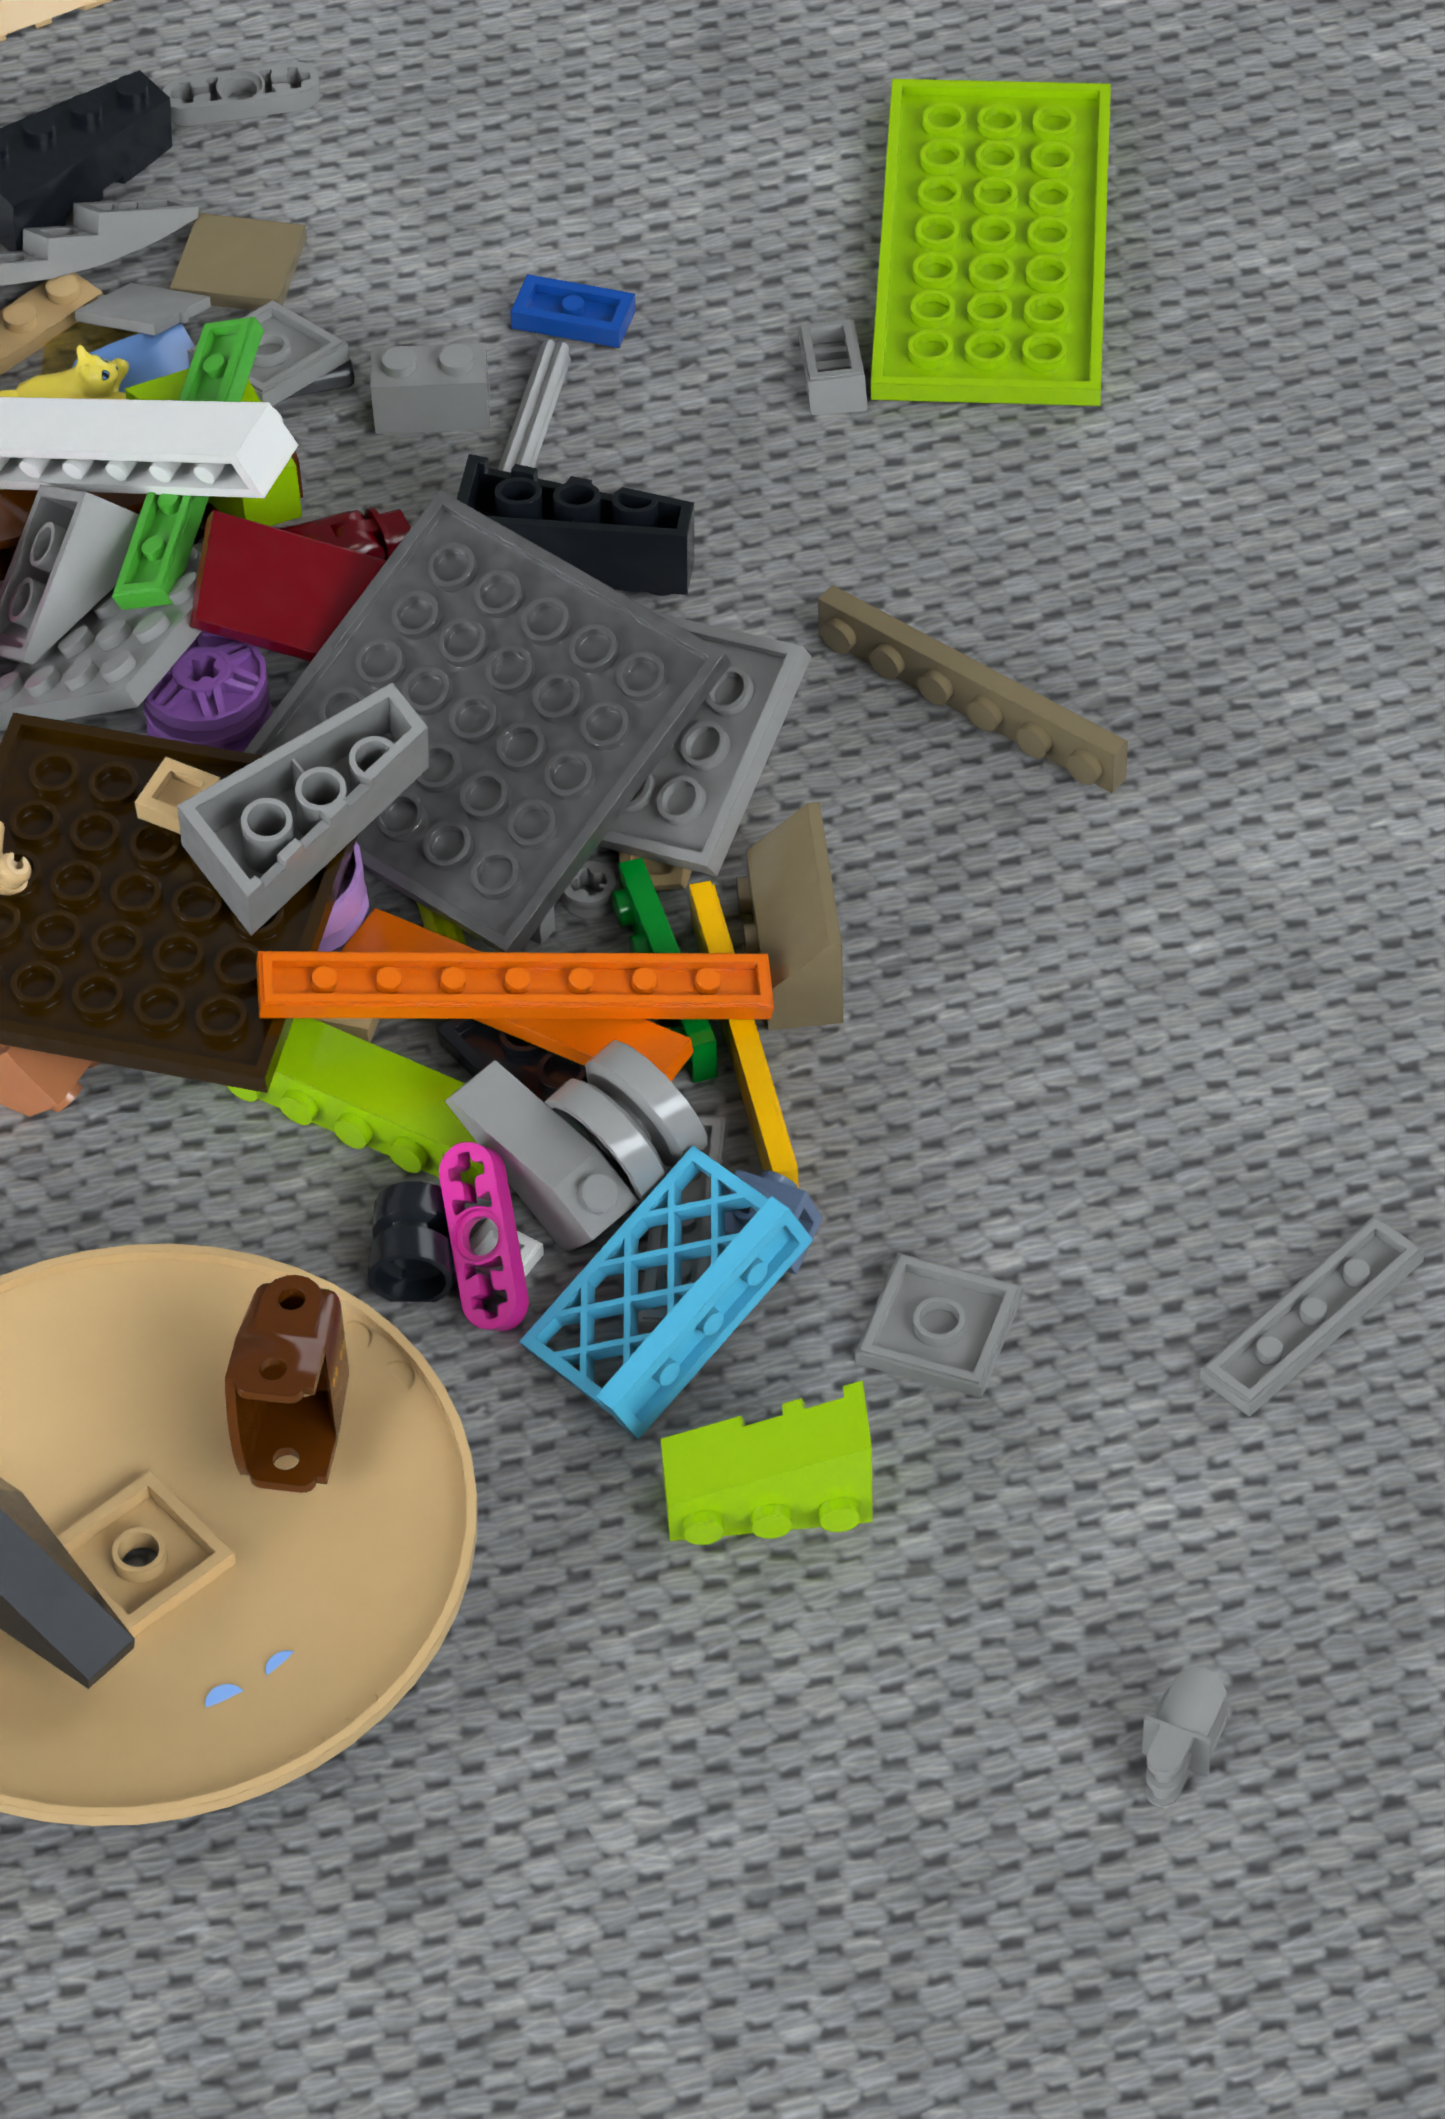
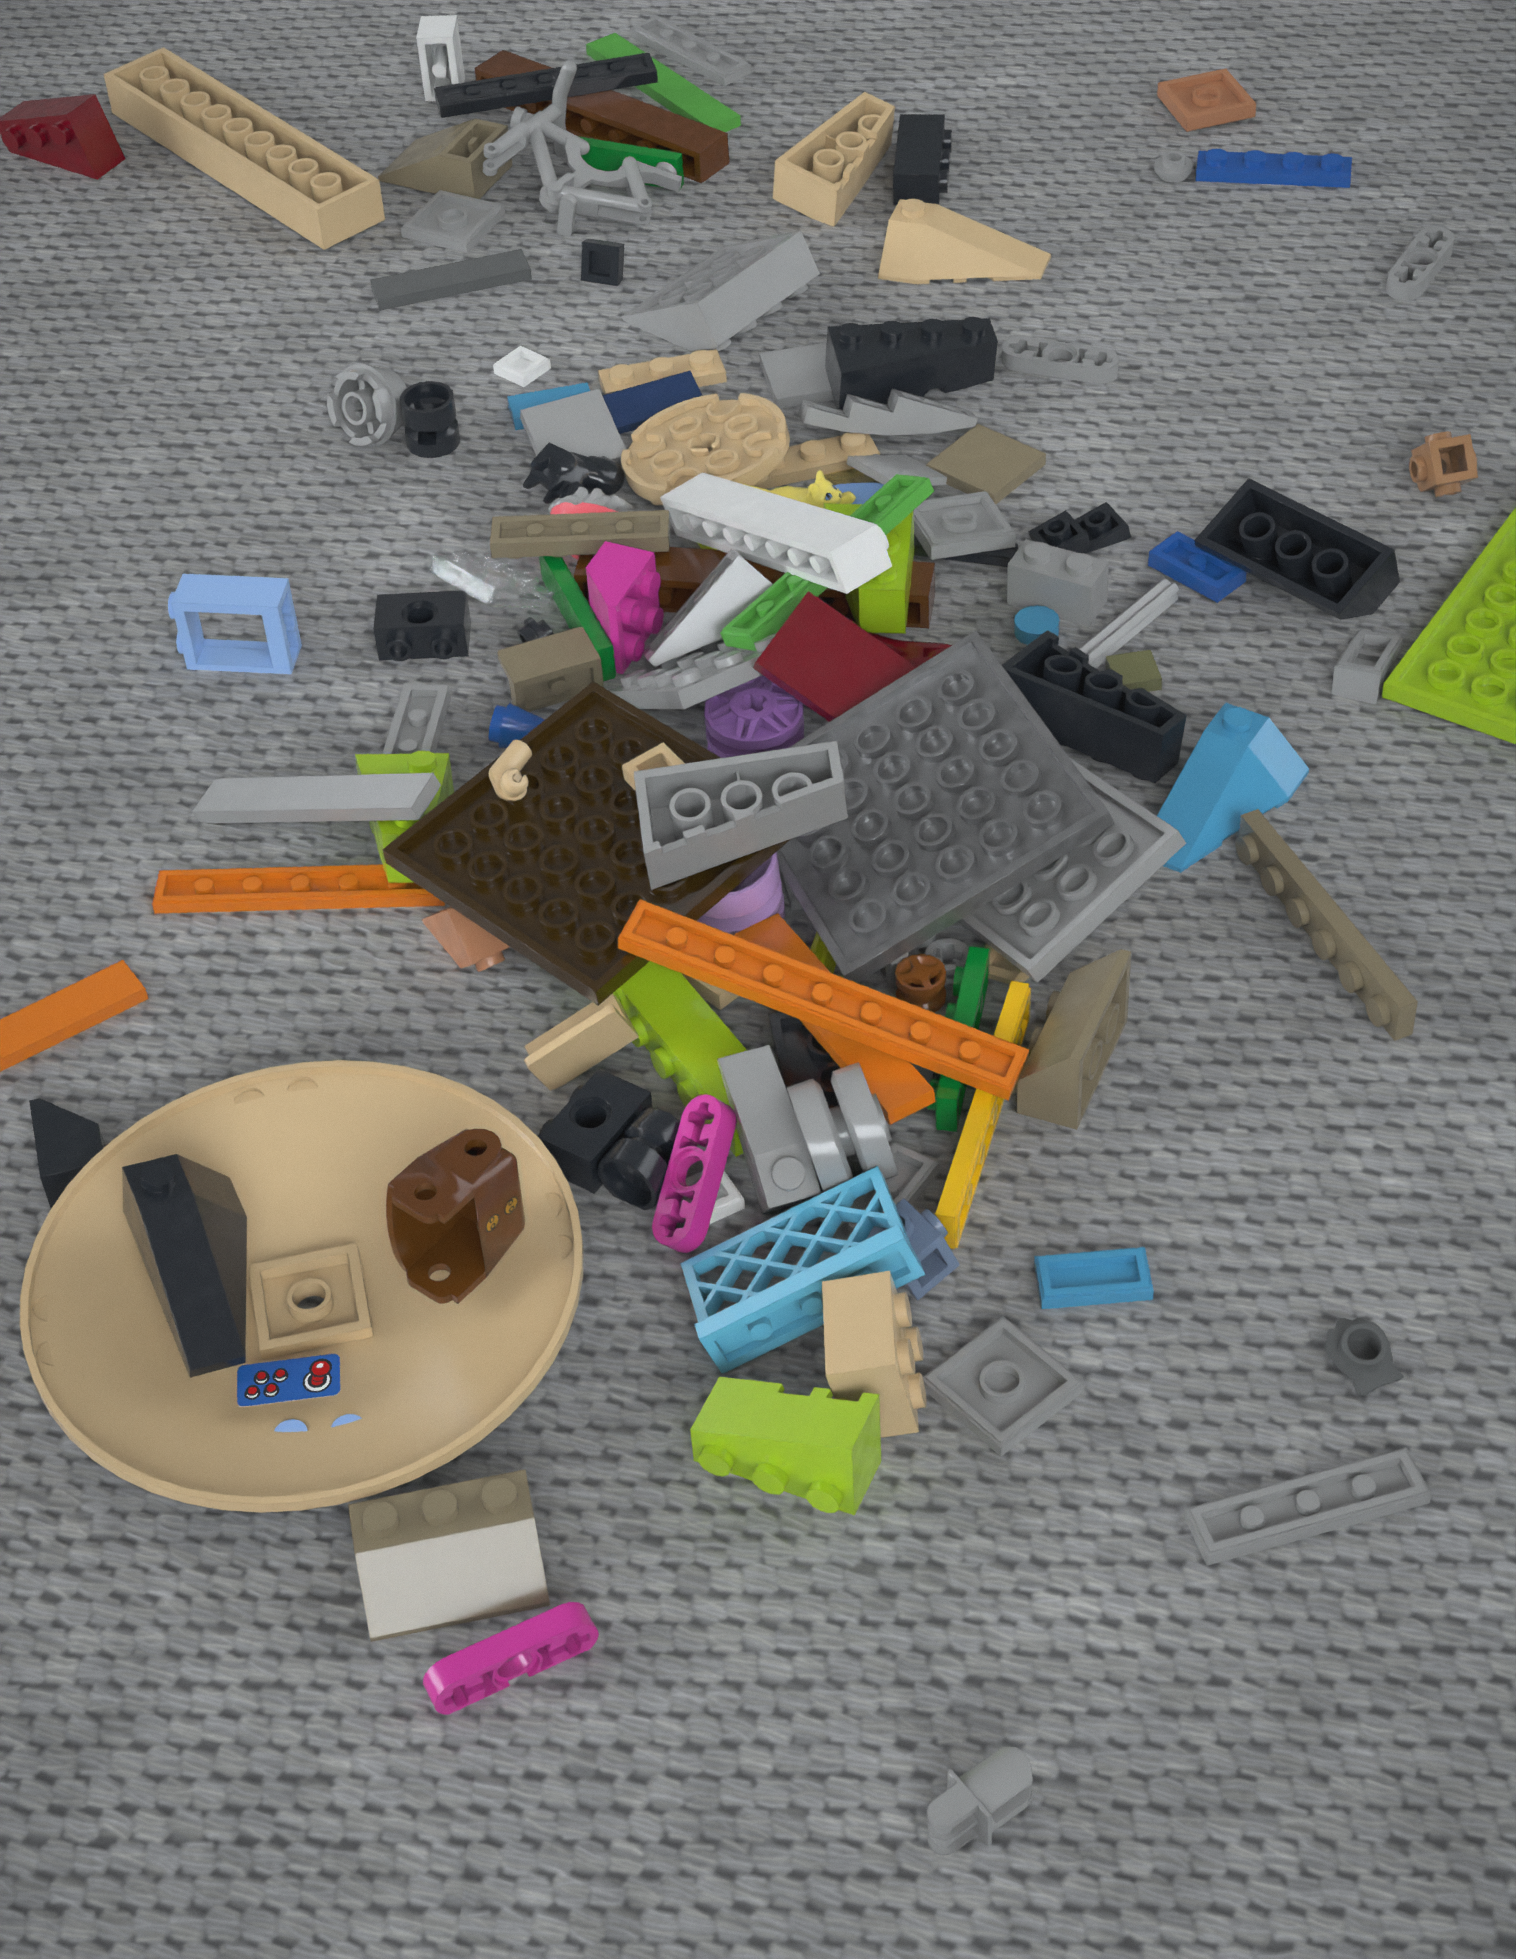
camera: 30 degrees right, 5 degrees down
(190, 1646) = (288, 1380): none -> blue sticker
(246, 1144) = (579, 1042): none -> tan panel
(331, 1224) = (592, 1125): none -> black brick
(412, 313) = (1084, 534): none -> black slope
(432, 450) = (1033, 622): none -> dark azure piece
(490, 1746) = (448, 1555): none -> slope
(579, 459) = (1137, 669): none -> olive tile
(579, 913) = (922, 972): none -> dark orange wheel
(632, 1804) = (483, 1666): none -> dark pink beam
(689, 253) = (1302, 552): none -> black slope
(773, 554) = (1233, 770): none -> dark azure wedge
(782, 86) = (1443, 463): none -> medium nougat brick
(803, 1336) = (874, 1348): none -> tan brick
(961, 1174) = (1093, 1278): none -> dark azure tile
(1277, 1140) = (1362, 1354): none -> dark grey animal

